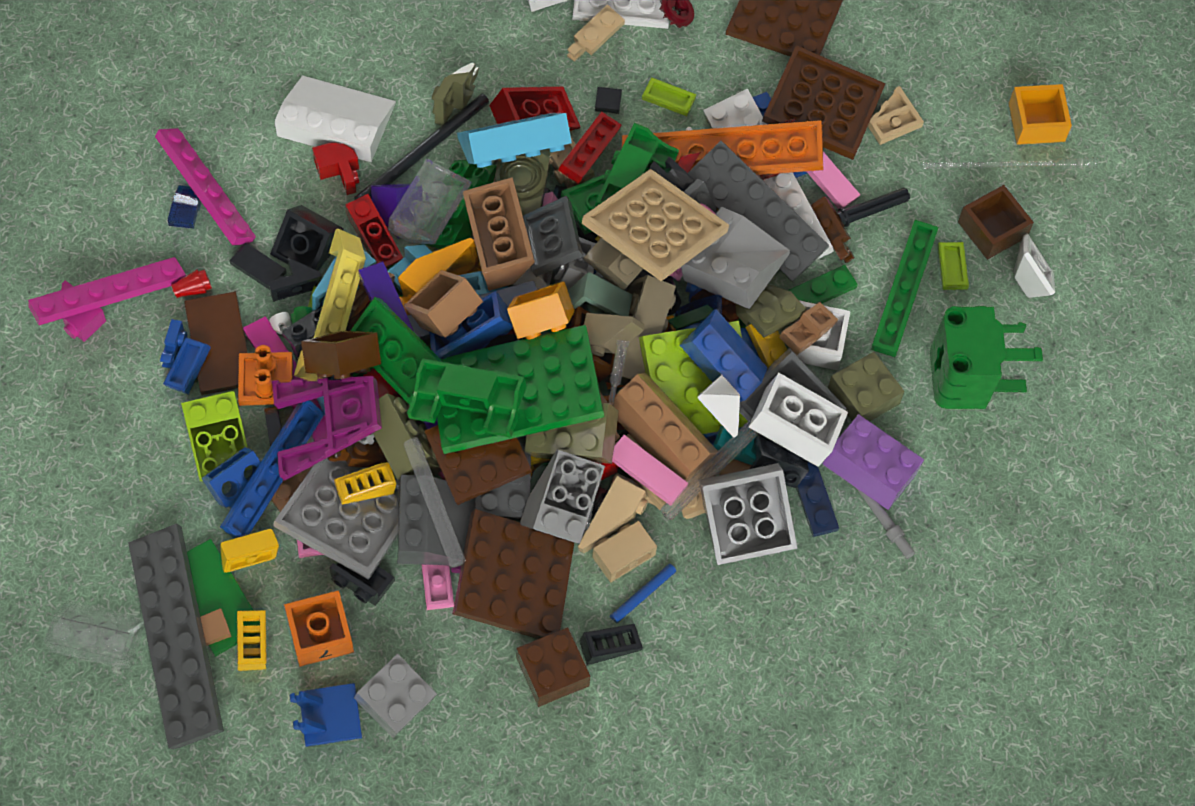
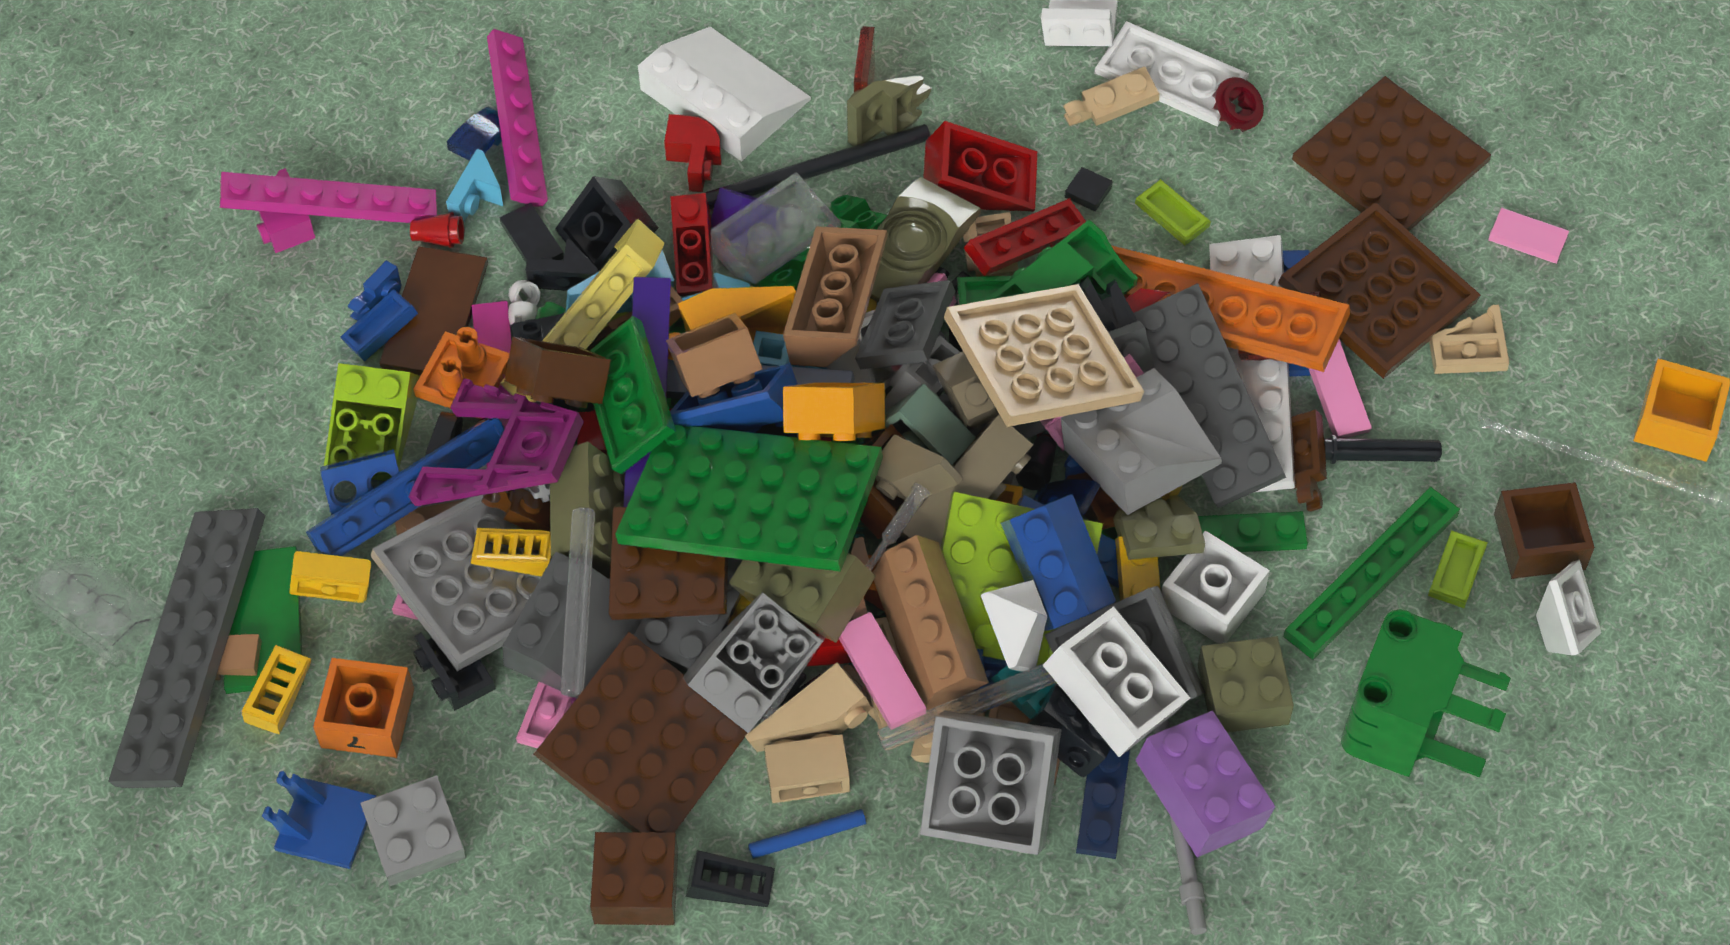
camera: 30 degrees right, 5 degrees down
(204, 241) = (474, 184): none -> medium azure slope
(274, 302) = (527, 288): none -> white hinge
(427, 69) = (865, 58): none -> clear red tile
(469, 390) = (679, 469): green bracket -> none
(515, 138) = (922, 186): medium azure slope -> none
(690, 317) = (1038, 496): dark green window -> none
(809, 328) = (1201, 570): medium nougat slope -> none
(894, 33) = (1528, 235): none -> bright pink tile

